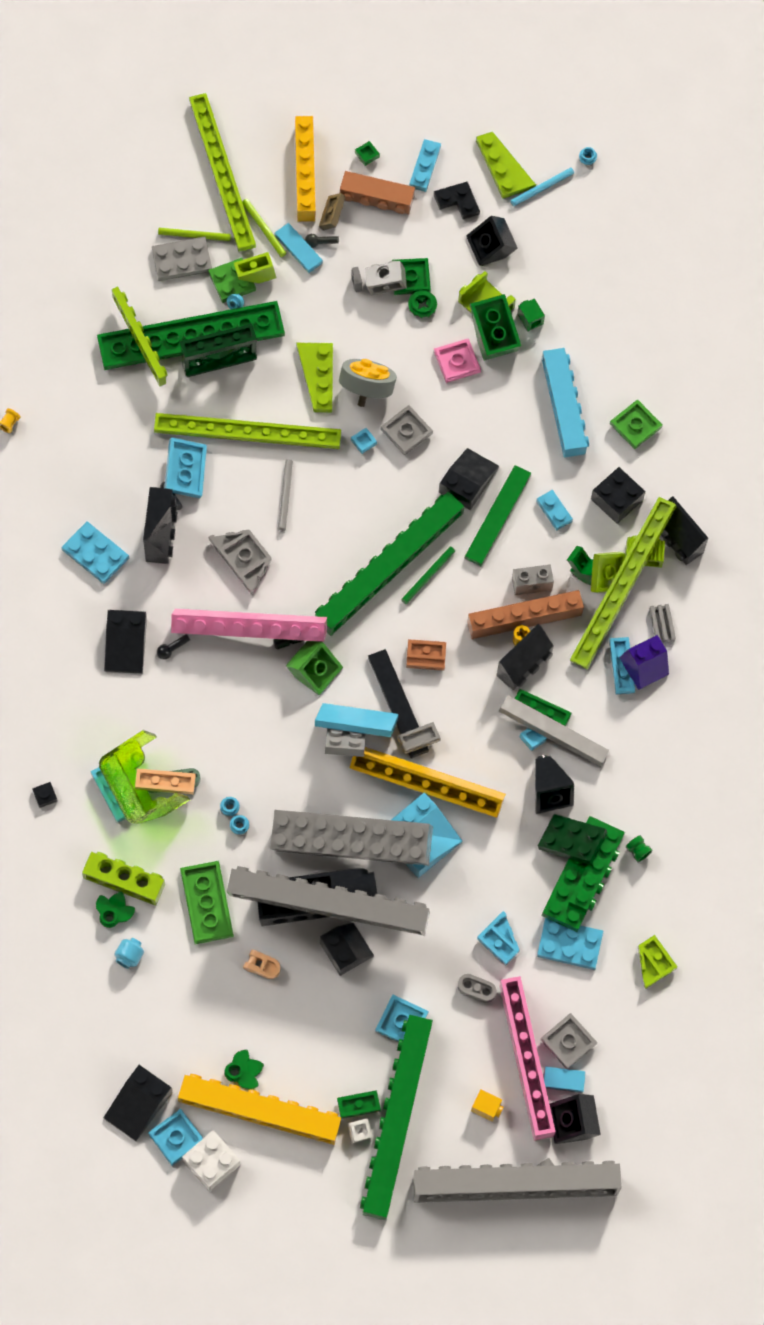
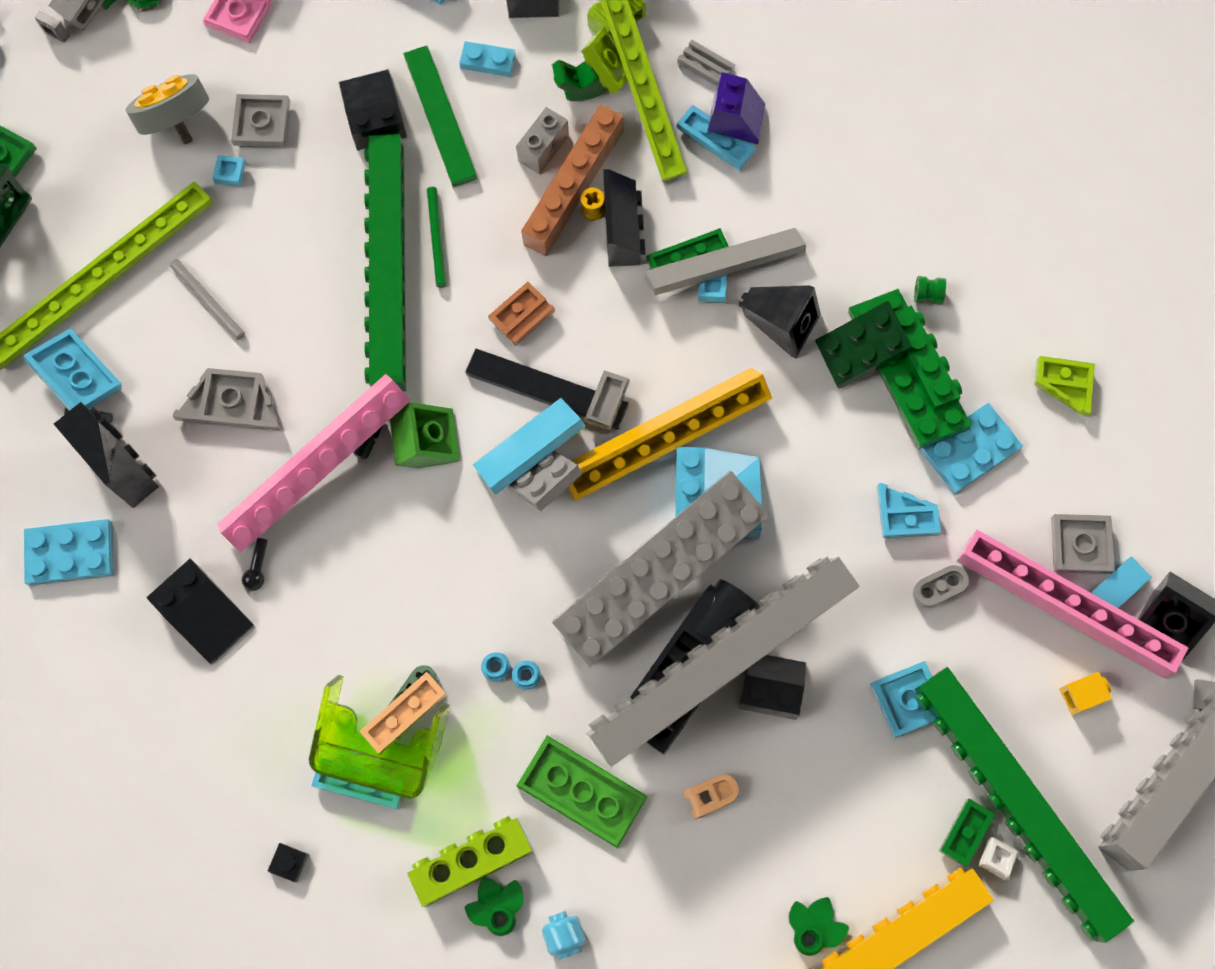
camera: 40 degrees left, 5 degrees up
(318, 373) = (106, 147): lime wing -> none

